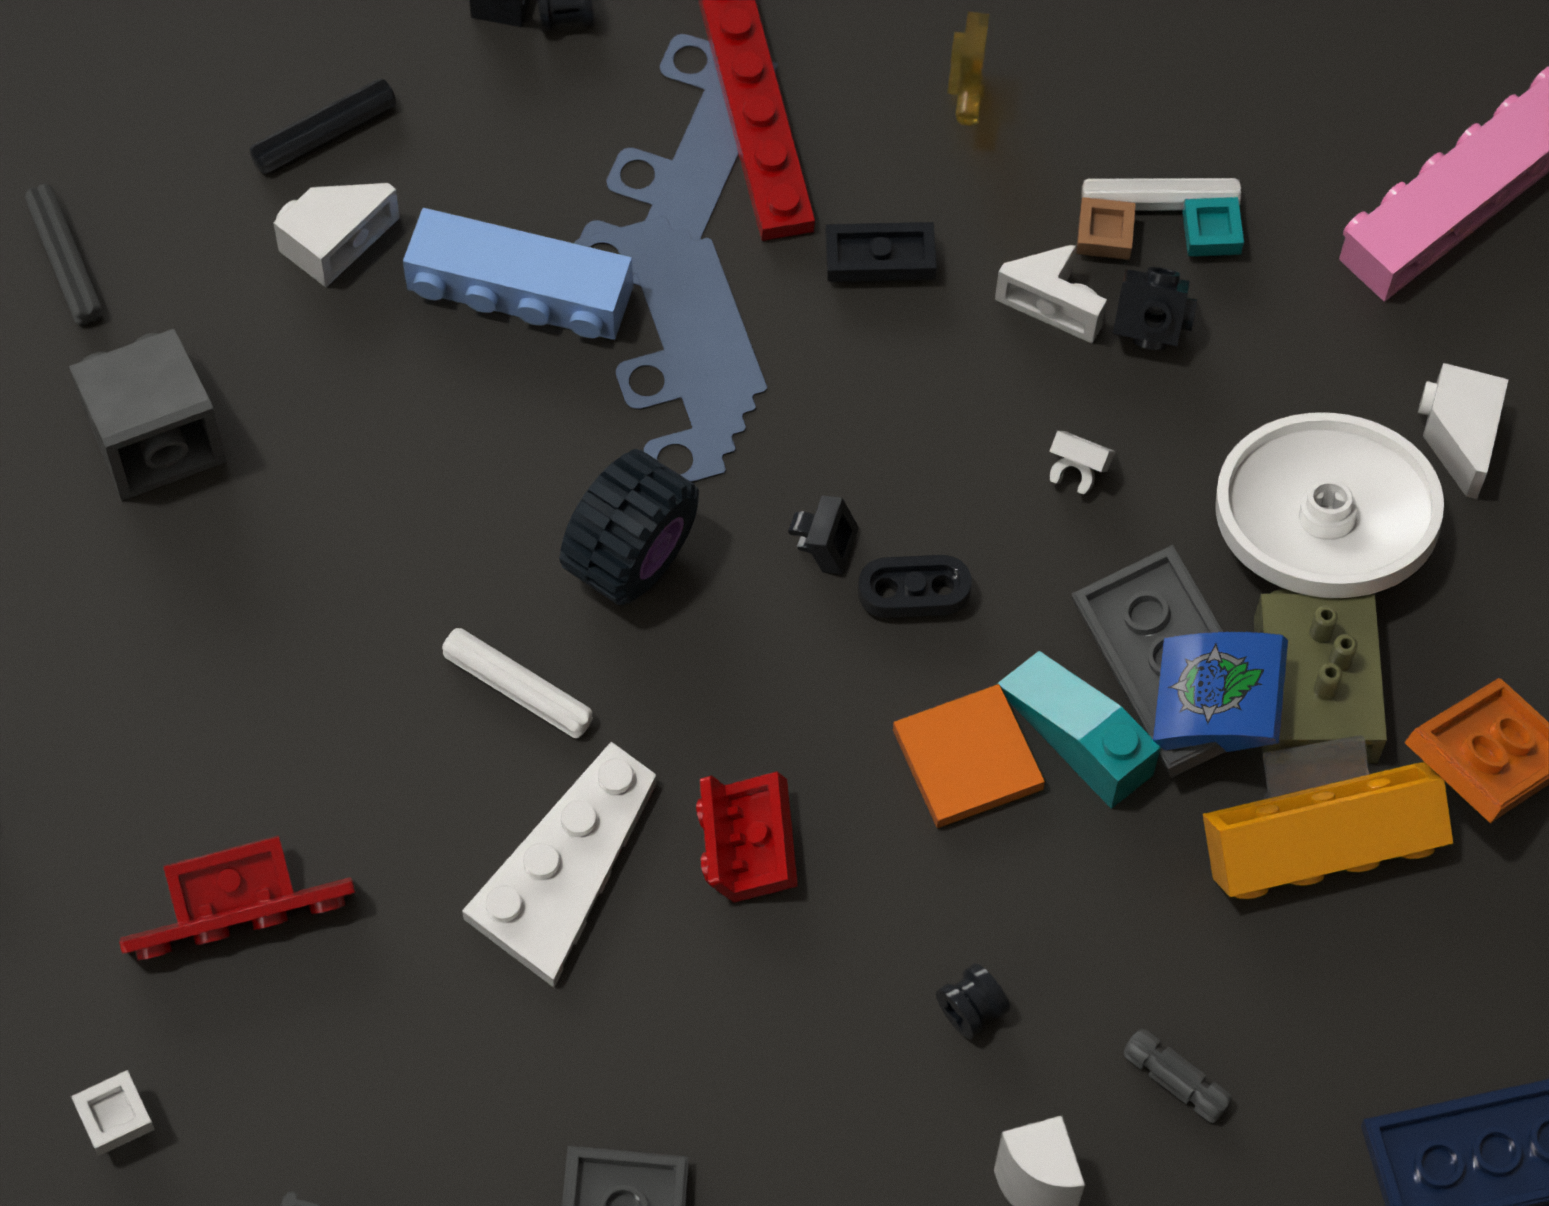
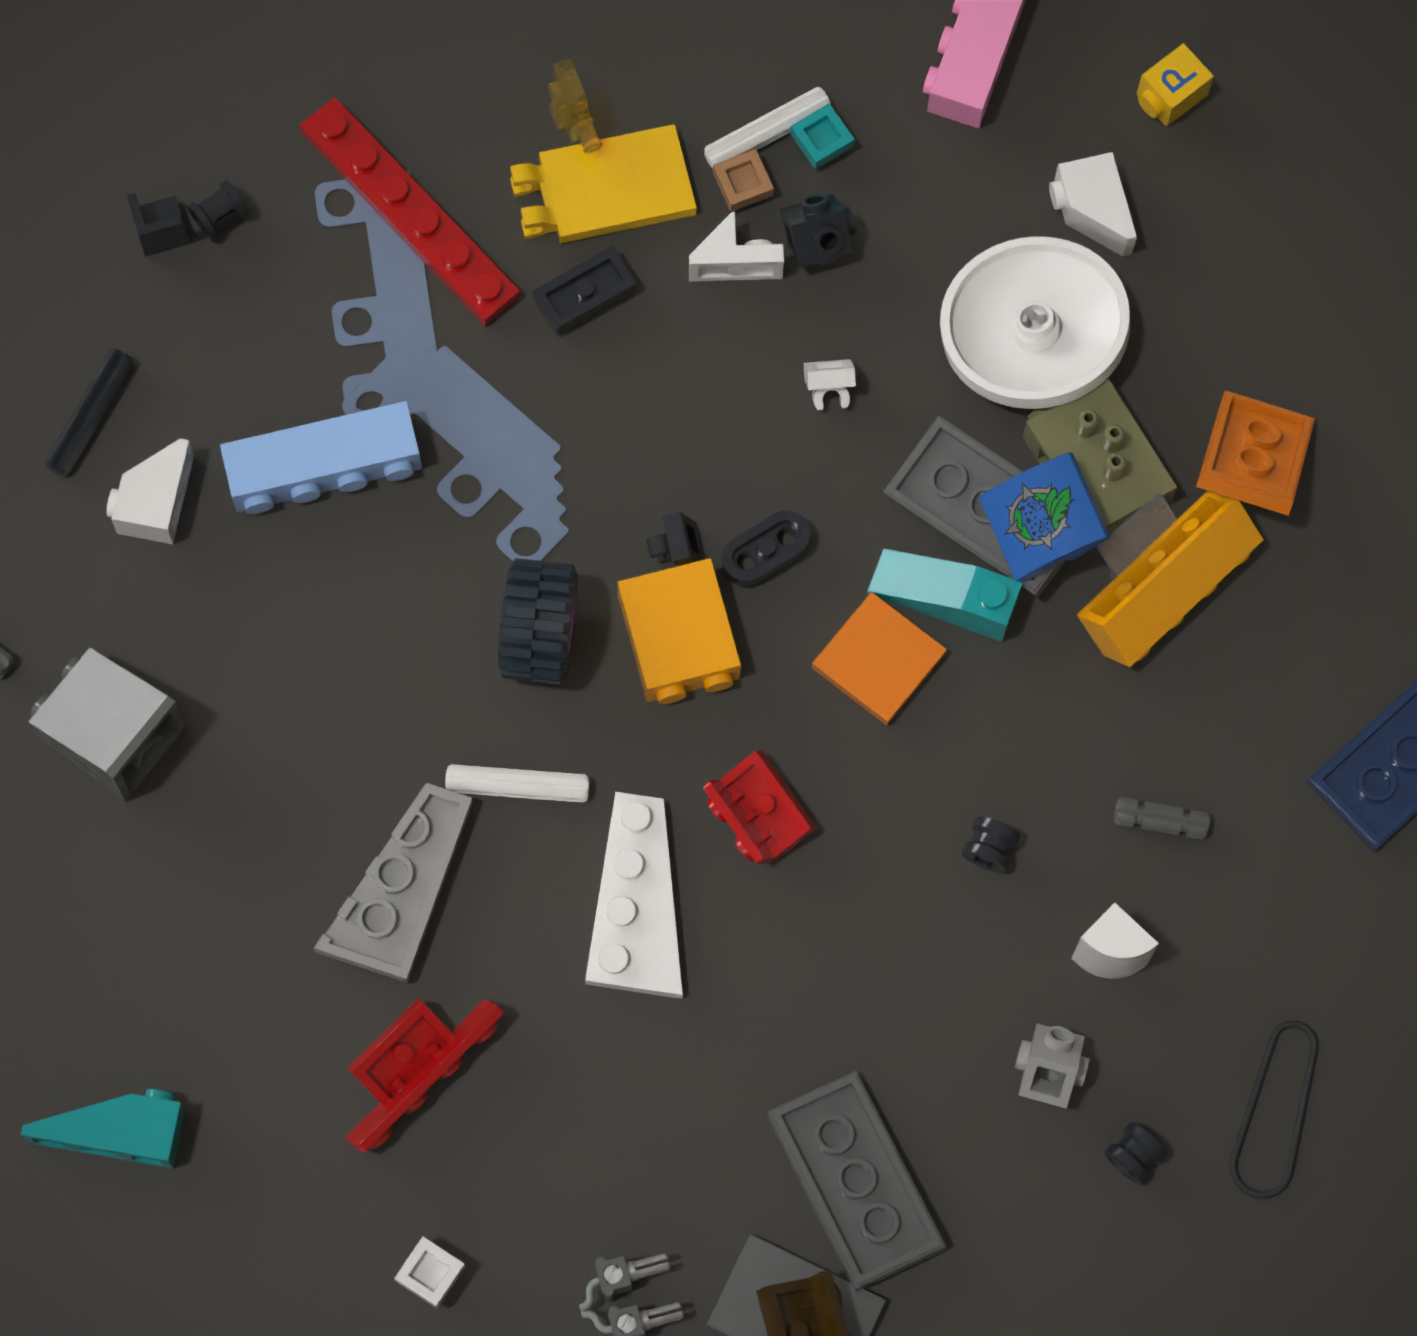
camera: 30 degrees left, 10 degrees up
(315, 735) = (395, 900): none -> light grey wing
(773, 619) = (679, 631): none -> light orange brick
(961, 170) = (620, 187): none -> yellow tile

